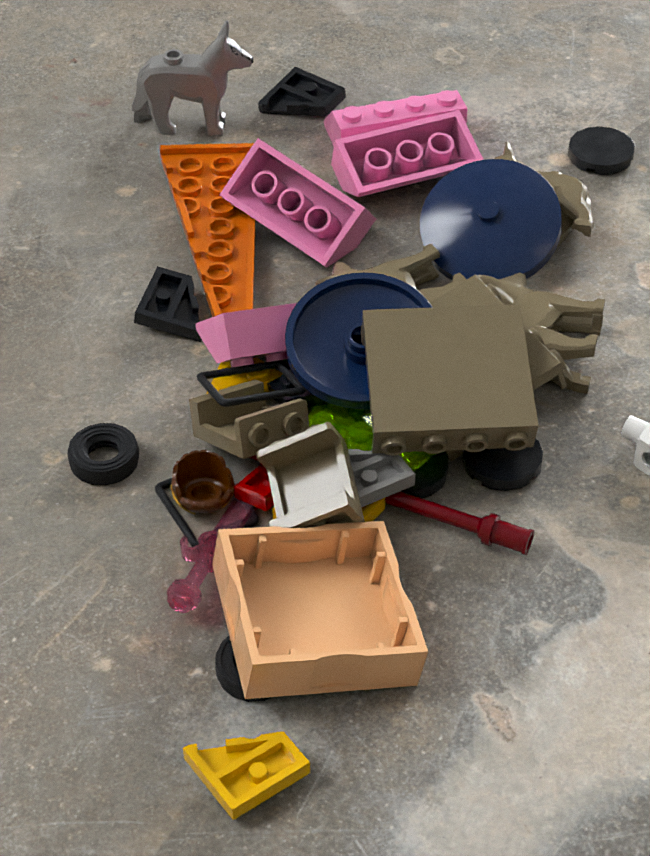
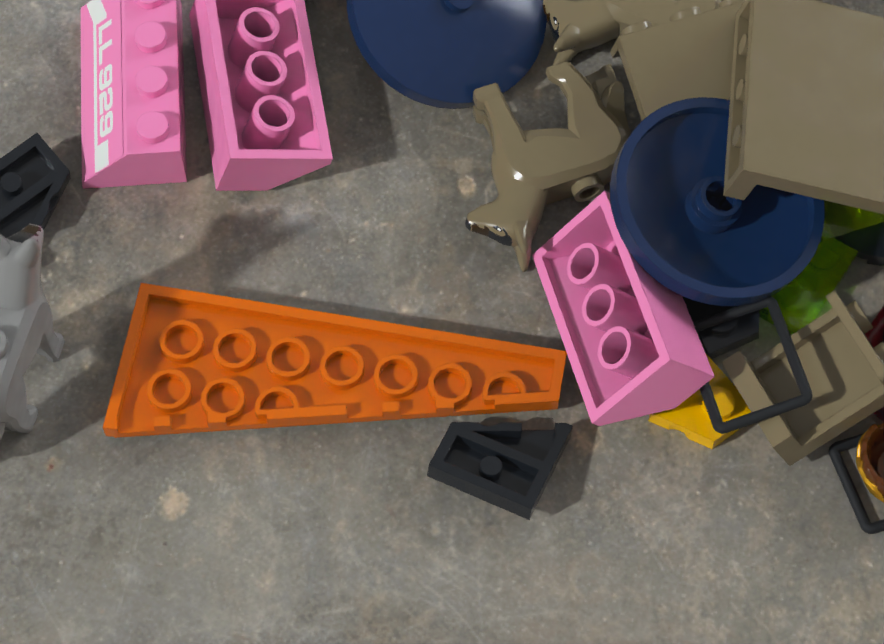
camera: 80 degrees left, 20 degrees up
(106, 471) = (796, 624): black tyre -> none
(297, 205) = (334, 248): bright pink slope -> none

